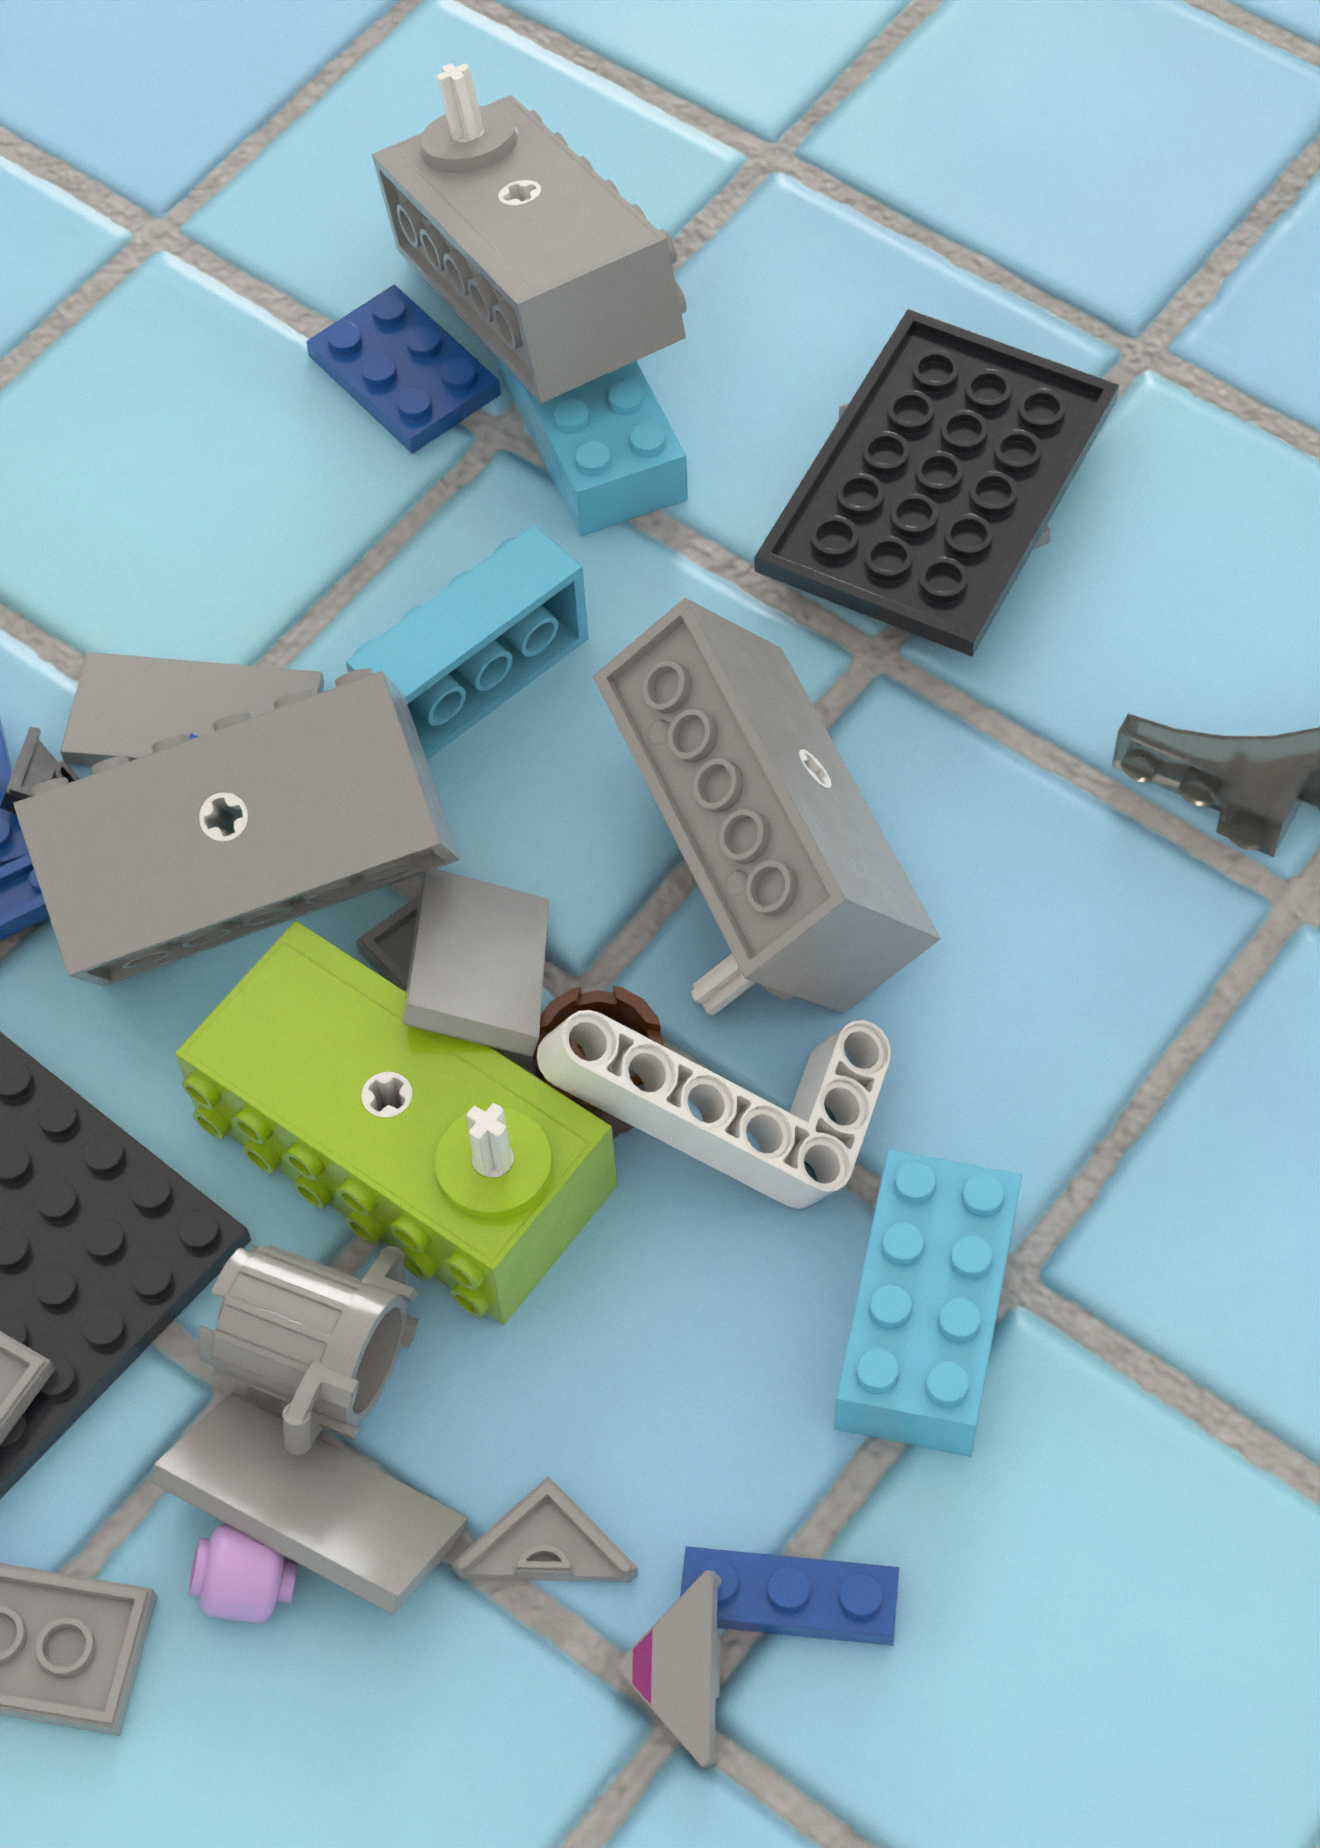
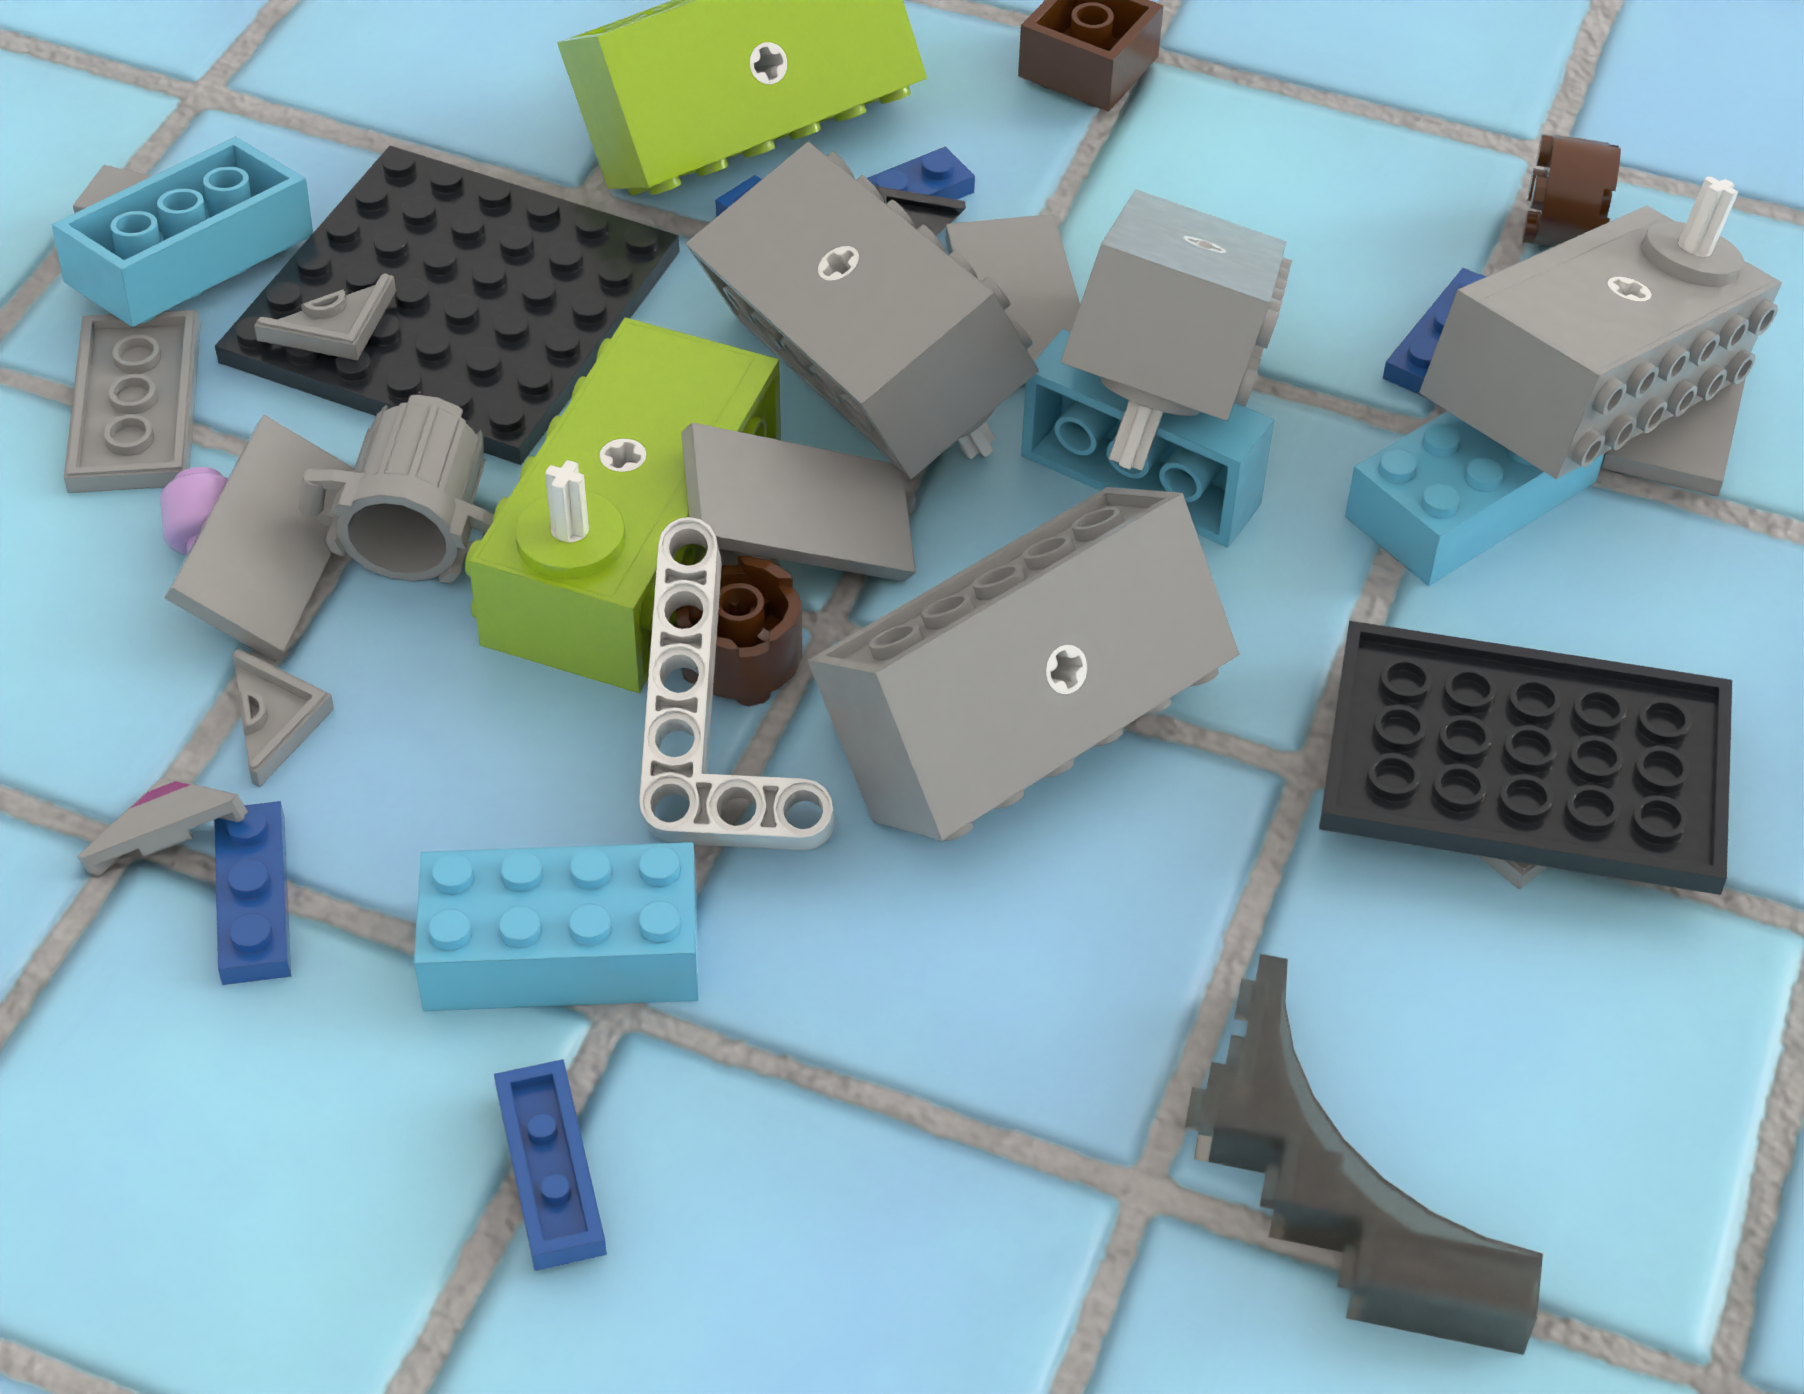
camera: 70 degrees right, 10 degrees down
(268, 219) = (1571, 190): none -> reddish brown brick
(385, 547) = (1176, 316): none -> light grey piece
(1194, 1363) = (549, 1165): none -> blue plate

